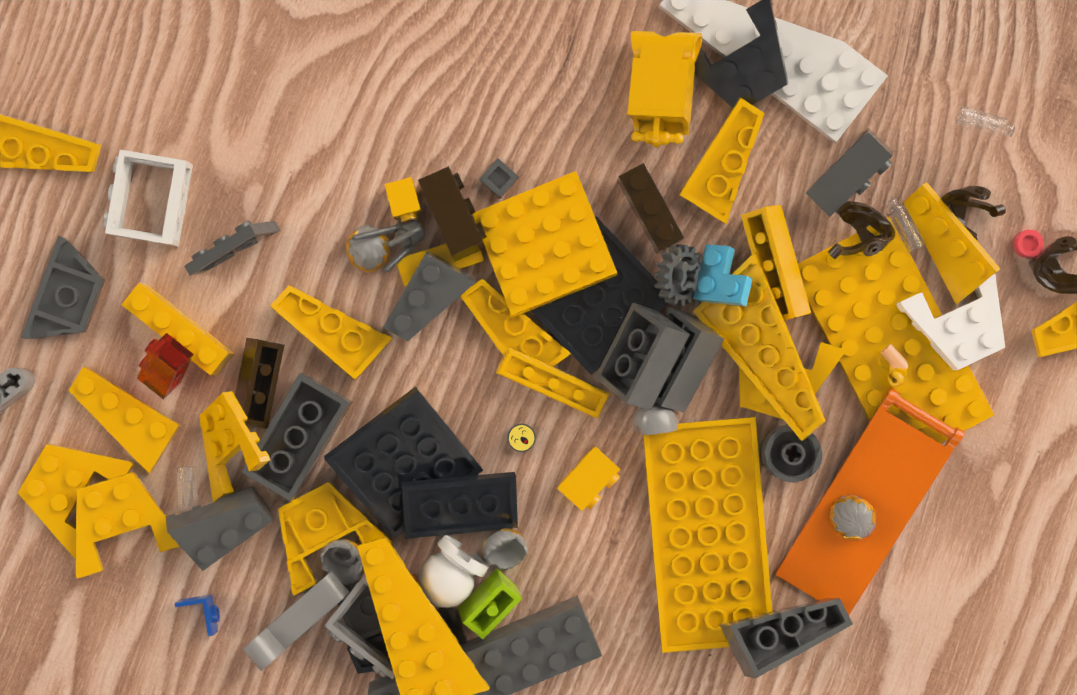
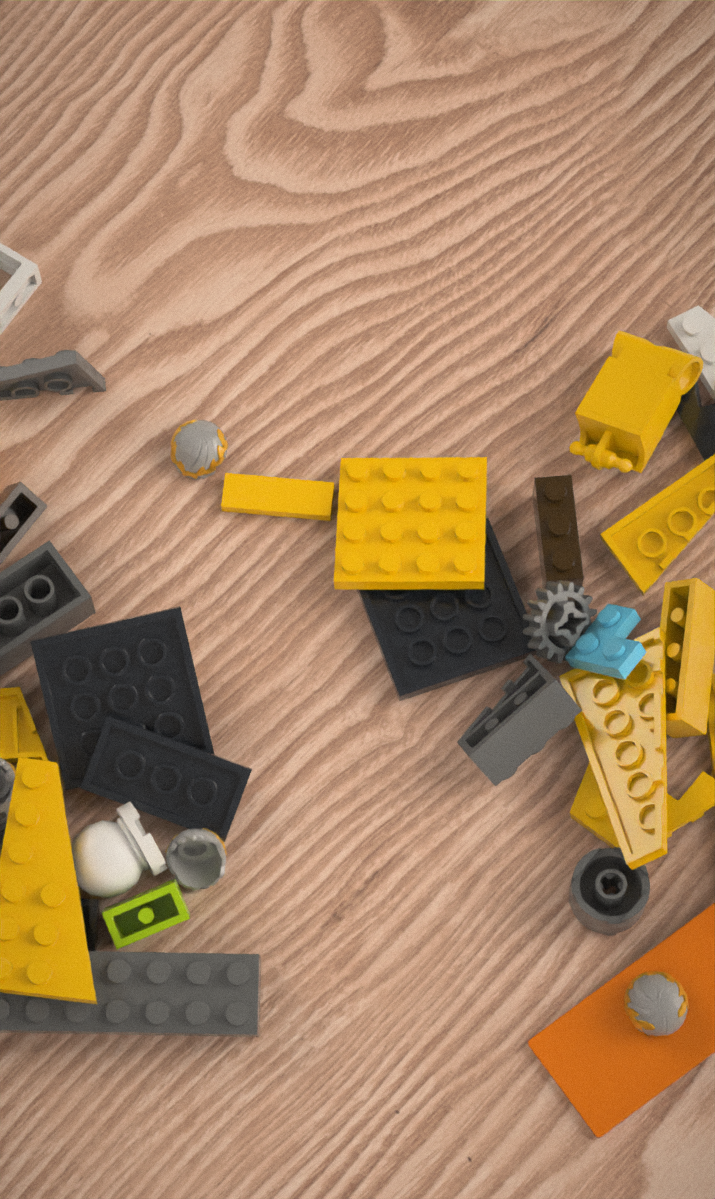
camera: 25 degrees right, 20 degrees down
(335, 334) = (114, 530): yellow wing -> none
(403, 199) = (267, 409): yellow brick -> none
(406, 236) = (250, 448): dark grey plant -> none
(427, 295) = (242, 520): dark grey wedge -> none
(453, 213) = (318, 445): dark brown brick -> none
(499, 178) = (391, 434): dark grey tile -> none
(505, 331) = (330, 623): yellow wing -> none
(521, 437) = (280, 738): light yellow tile -> none
(552, 382) = (348, 684): yellow tile -> none
(589, 478) = (341, 818): yellow brick -> none
(641, 356) = (471, 689): dark grey brick -> none
(655, 421) = (456, 777): light grey hair -> none
(706, 530) = (460, 955): yellow plate -> none
(780, 635) = (499, 1103): dark grey wedge -> none

